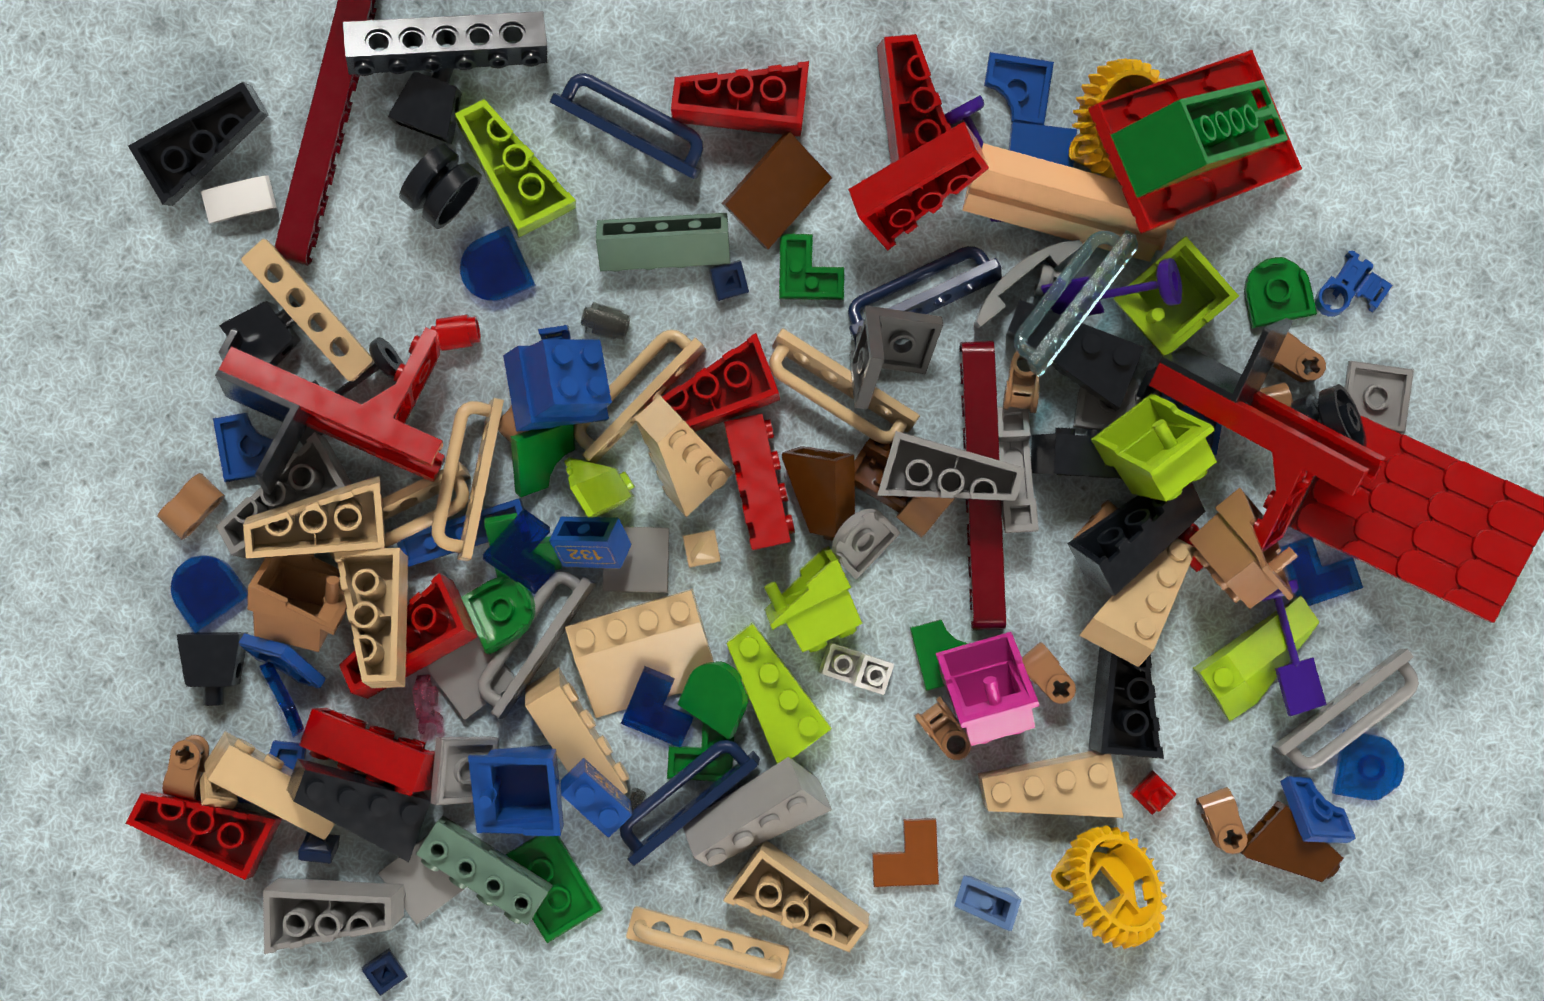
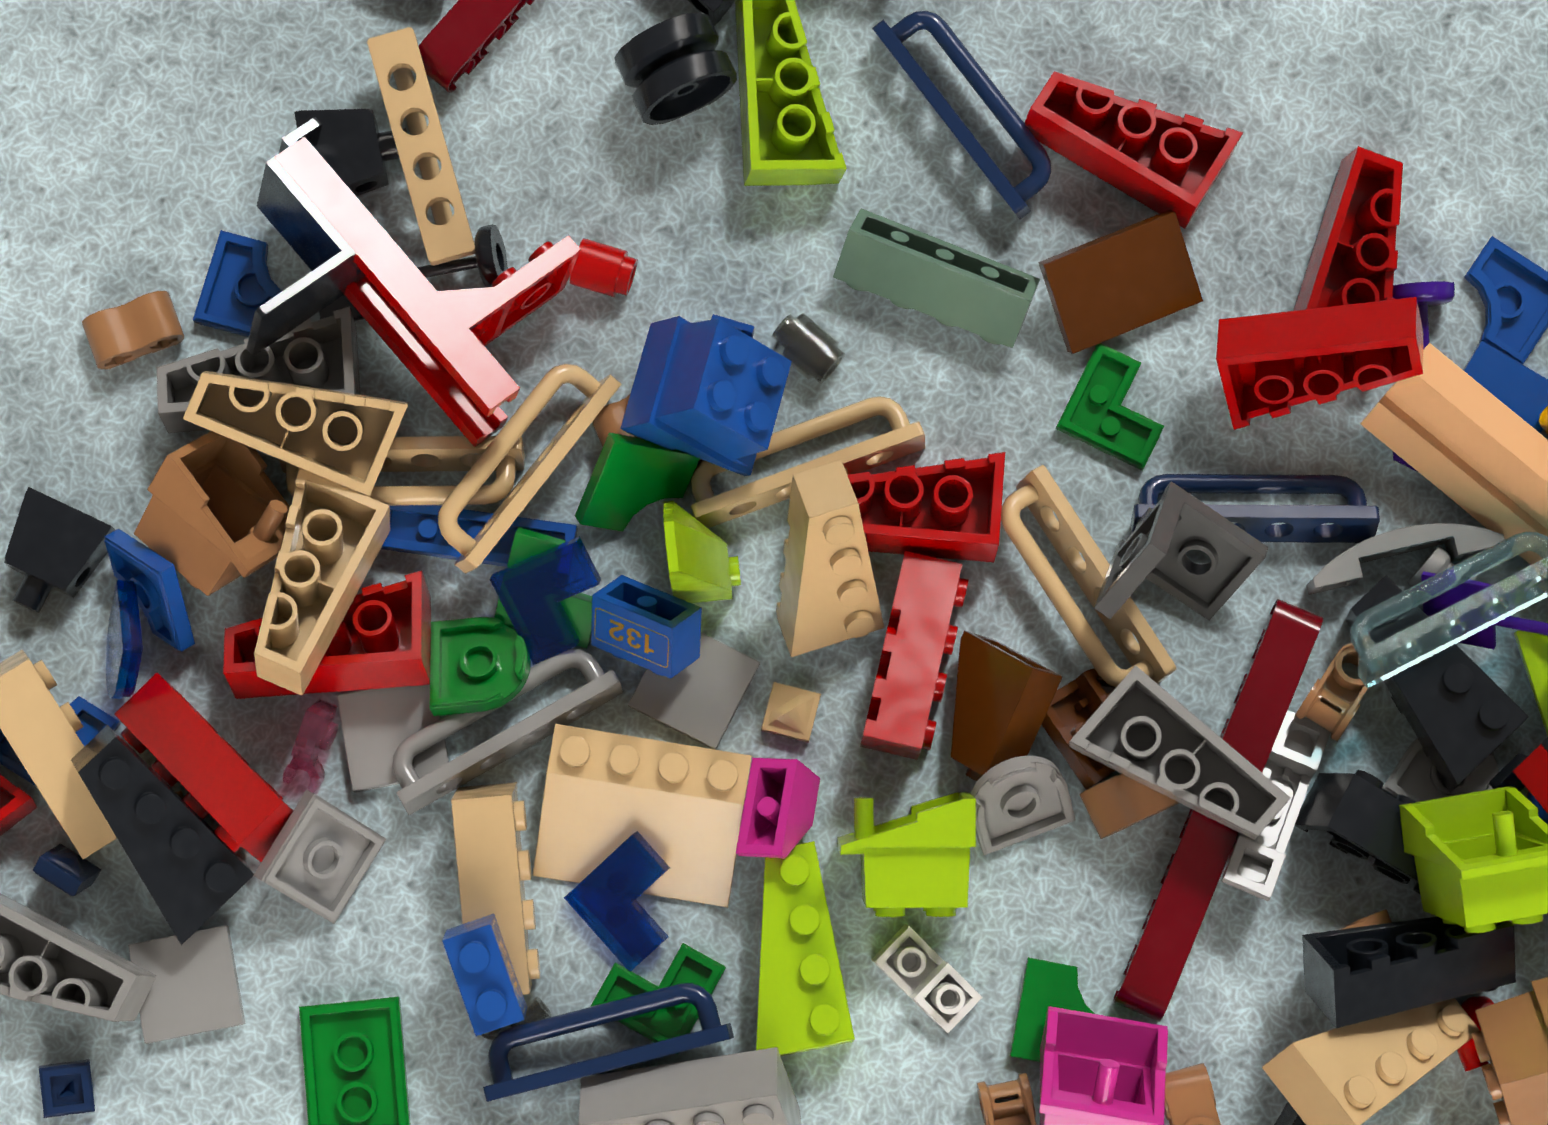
camera: 25 degrees right, 10 degrees down
(206, 590) = (94, 451): clear blue tile -> none
(483, 870) = (278, 1008): sand green brick -> none
(495, 267) = (694, 209): clear blue tile -> none
(517, 791) = (379, 915): blue piece -> none
(716, 697) = (714, 920): green tile -> none
(721, 614) = (776, 807): none -> dark pink slope
(728, 280) = (999, 370): dark blue tile -> none

